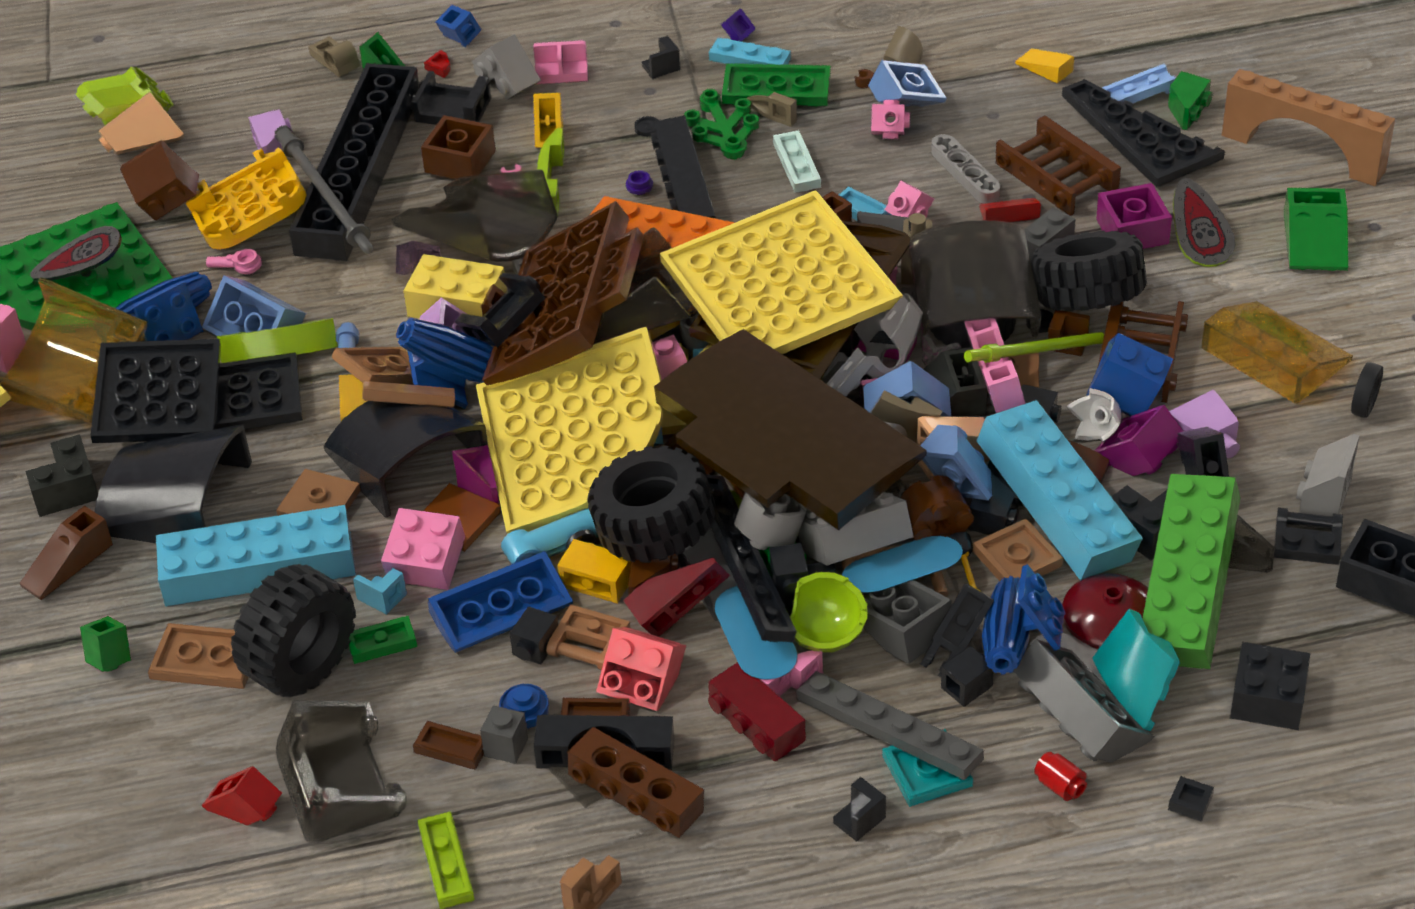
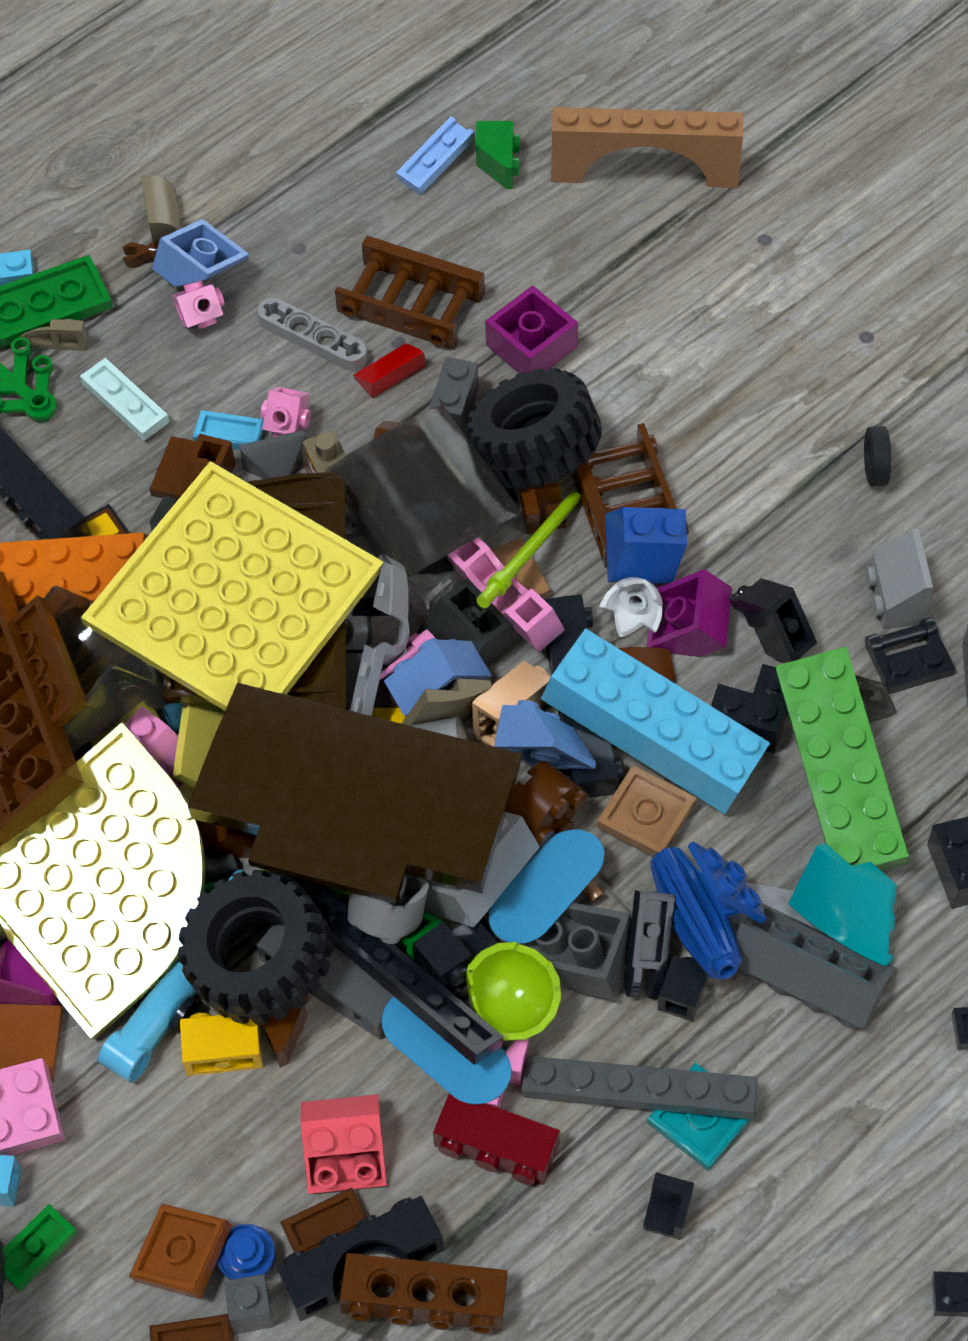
camera: 30 degrees left, 15 degrees up
(479, 683) = (180, 1251): none -> dark orange tile
(497, 601) = (139, 1135): blue slope -> none
(532, 634) = (204, 1160): black brick -> none
(584, 627) = (262, 1119): medium nougat plate -> none
(671, 595) = (324, 1049): dark red slope -> none
(967, 546) = (588, 823): hinge -> none
(1047, 64) = (320, 158): yellow slope -> none
(1061, 776) = (841, 1064): red brick -> none
(1098, 605) = (767, 853): dark red dish -> none
(1143, 138) = (475, 218): black wing -> none
(1201, 226) = (603, 314): shield -> none
(1209, 412) = (745, 559): lavender torso -> none
(1272, 349) = (754, 439): clear yellow slope -> none
(1316, 228) = (719, 271): green slope -> none

